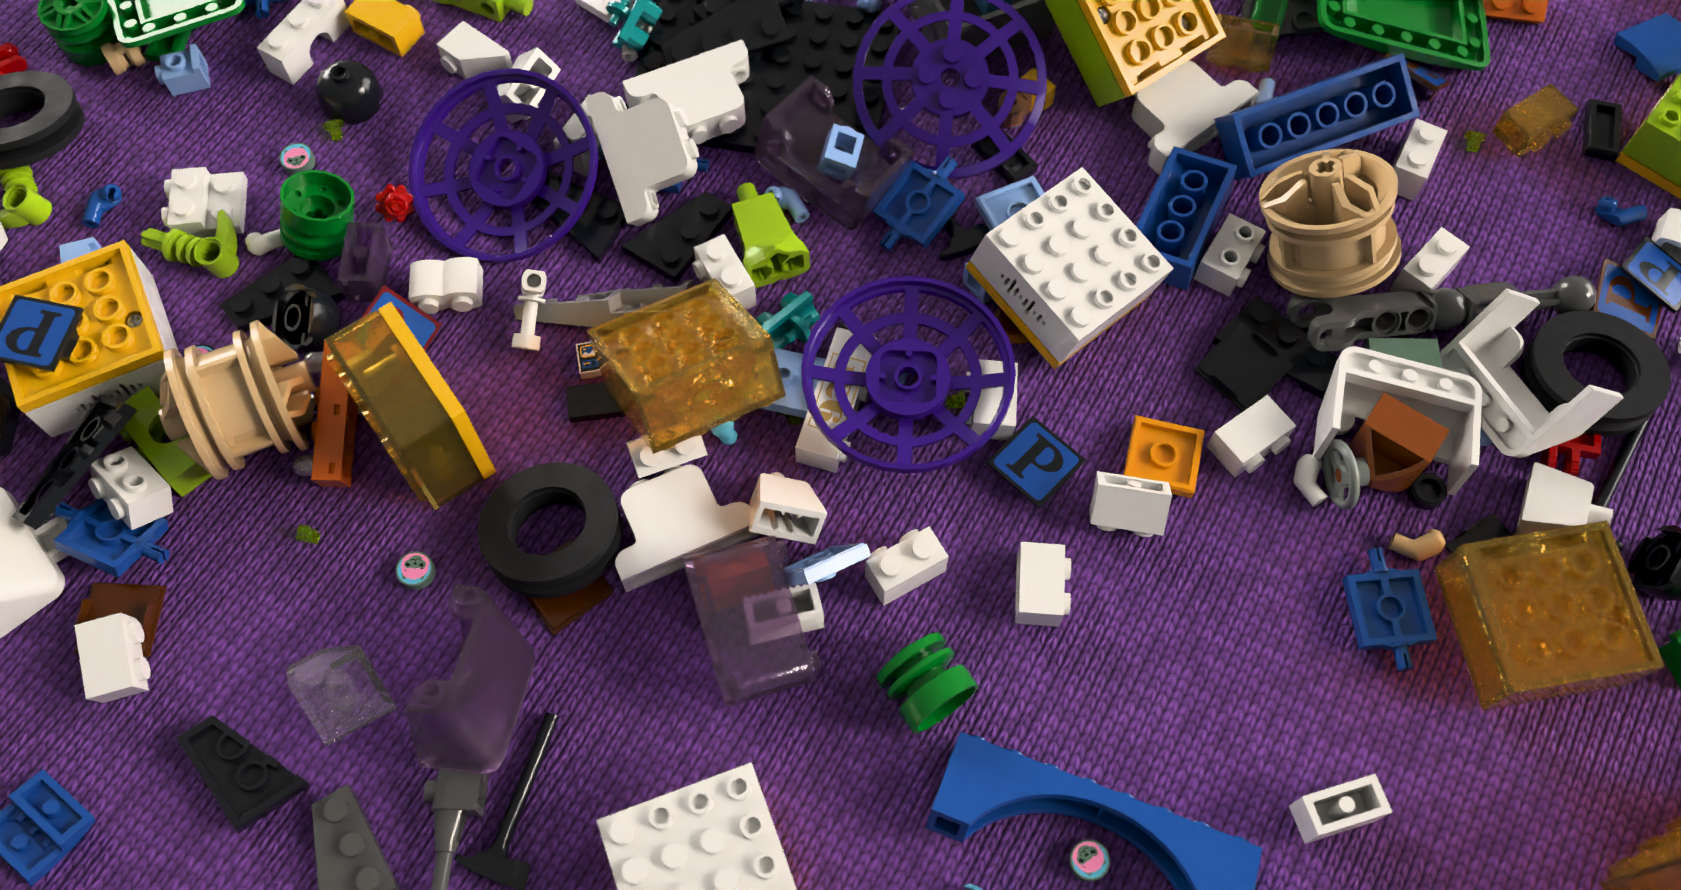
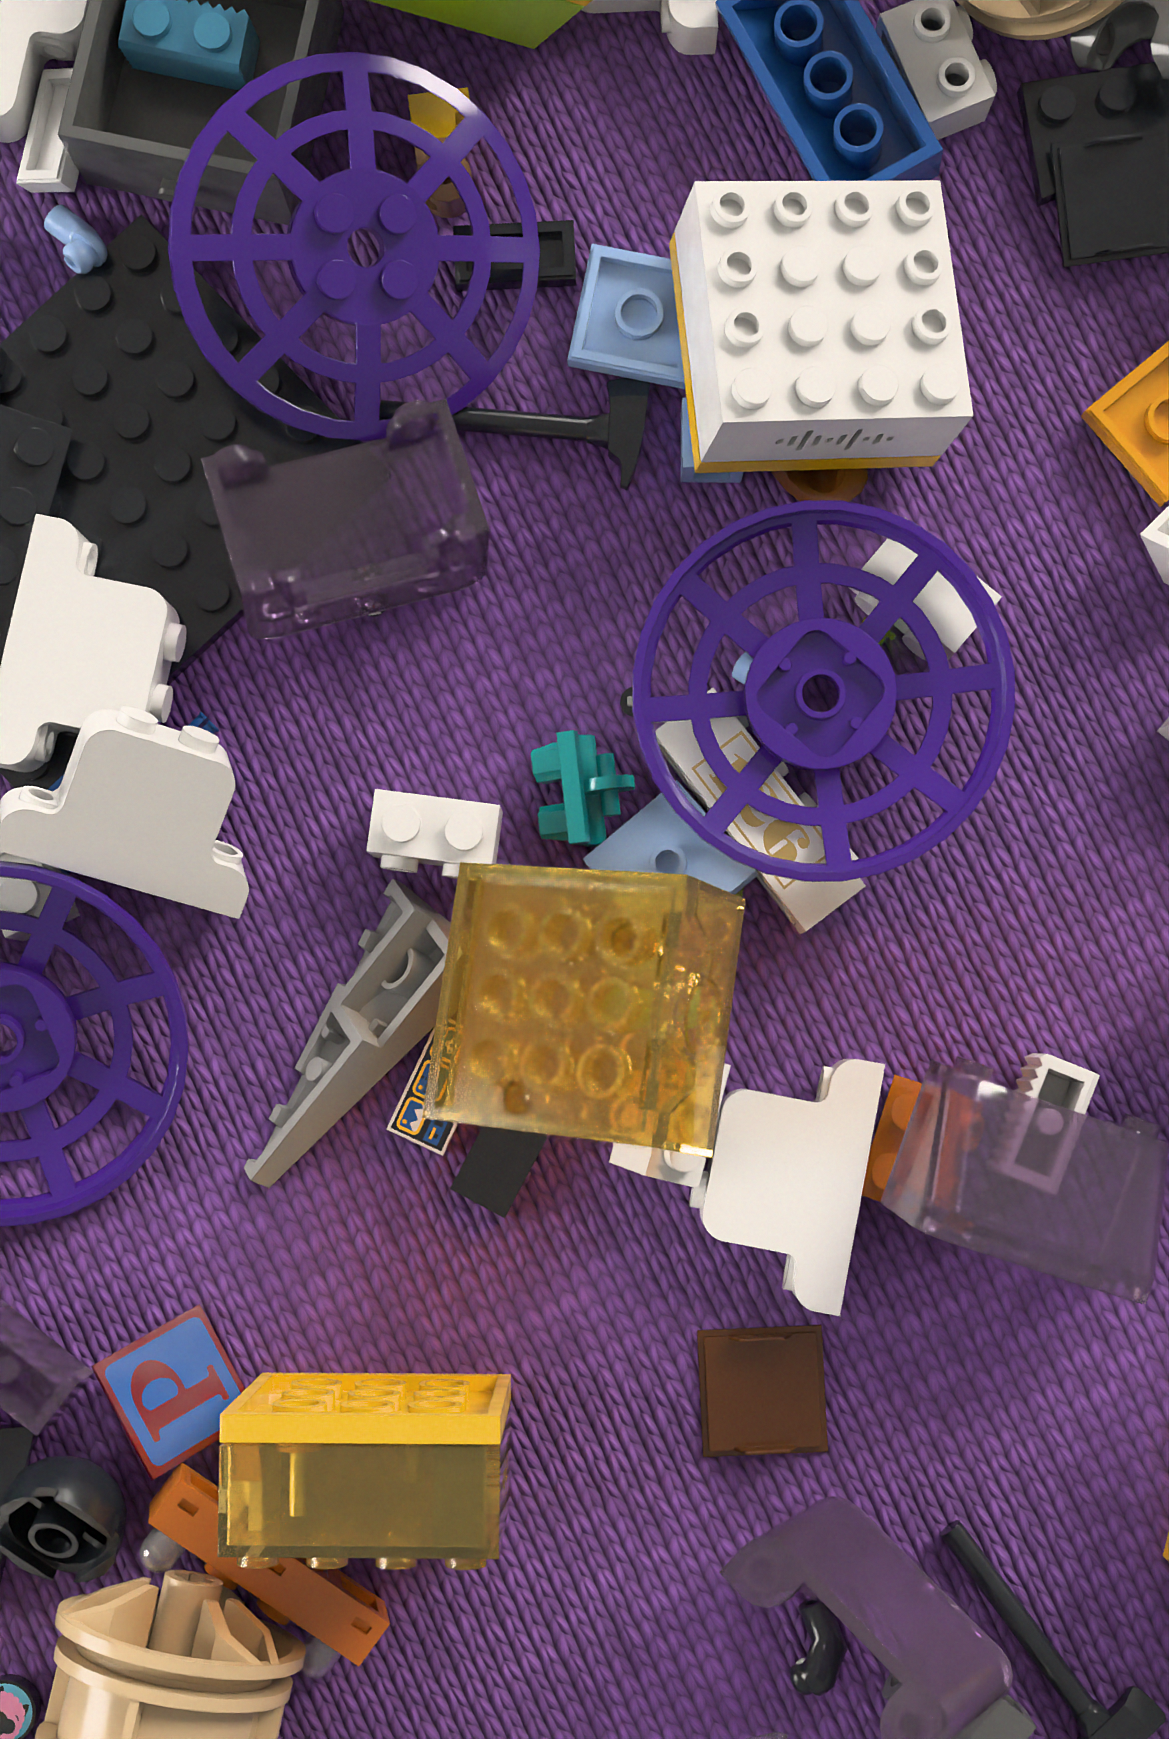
camera: 50 degrees left, 20 degrees up
(307, 534) = (424, 1708): clear neon green piece -> none
(415, 570) = (595, 1588): tile -> none
(446, 284) = (140, 1260): white brick -> none
(533, 289) = (271, 1144): white bar -> none
(564, 570) = (620, 1428): black tyre -> none
(598, 223) = (194, 950): black wing -> none
(670, 242) = (303, 846): black wing -> none
(766, 238) = (406, 722): lime piece -> none
(786, 509) = (890, 1012): white torso -> none
(789, 200) = (358, 639): light blue arm -> none
(825, 563) = (1023, 1020): light blue plate -> none
(840, 152) = (364, 489): light blue brick -> none
(905, 565) = (1083, 900): white brick -> none
(918, 204) = (523, 451): blue plate -> none
(1035, 461) = (1058, 602): piece -> none

